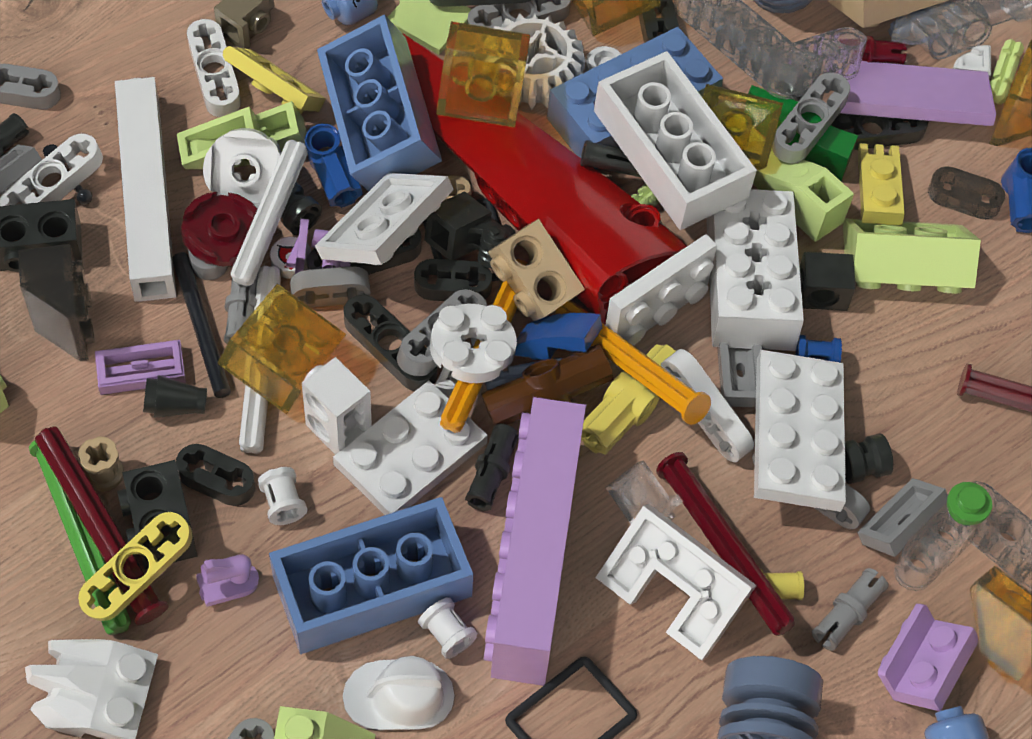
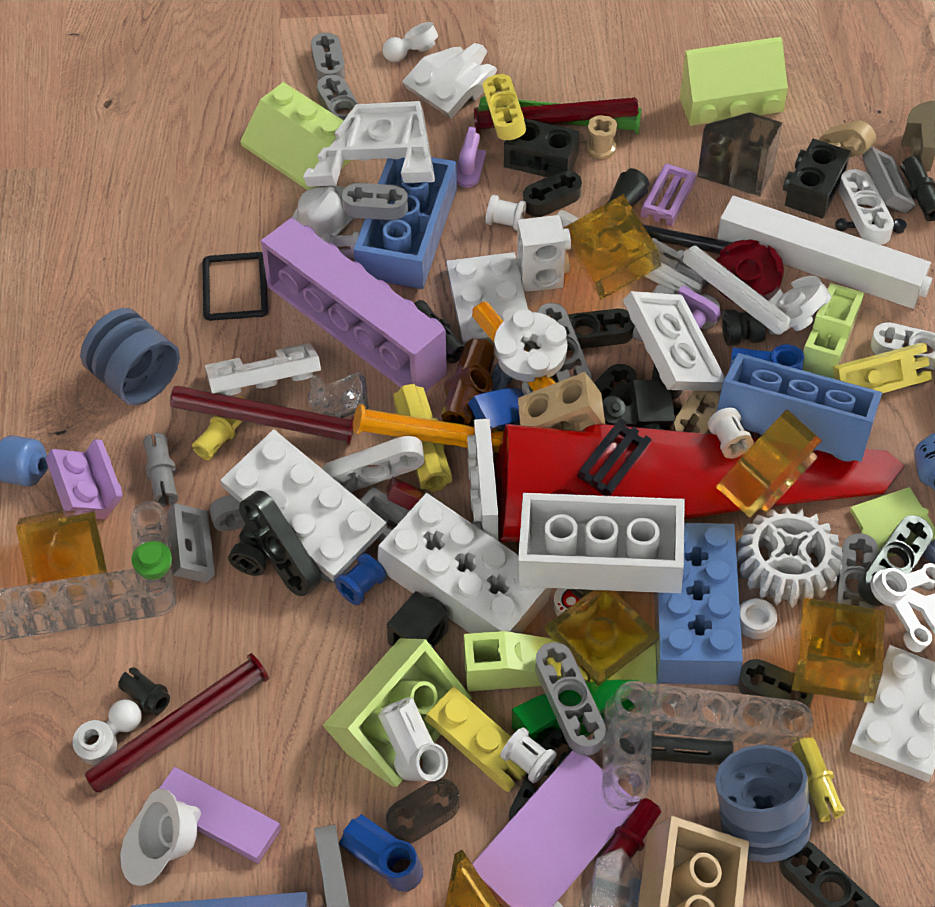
camera: 130 degrees right, 5 degrees down
(287, 644) = (378, 132): none -> white wing
(406, 582) = (375, 201): none -> light grey beam
(458, 129) = (730, 432): none -> white bush
(566, 188) = (630, 436): none -> black tile
(714, 360) = (403, 493): none -> dark red tile
(855, 419) = (267, 527): none -> pearl dark grey beam
(873, 128) = (528, 755): none -> white bush
(938, 206) = (411, 741): none -> white piece

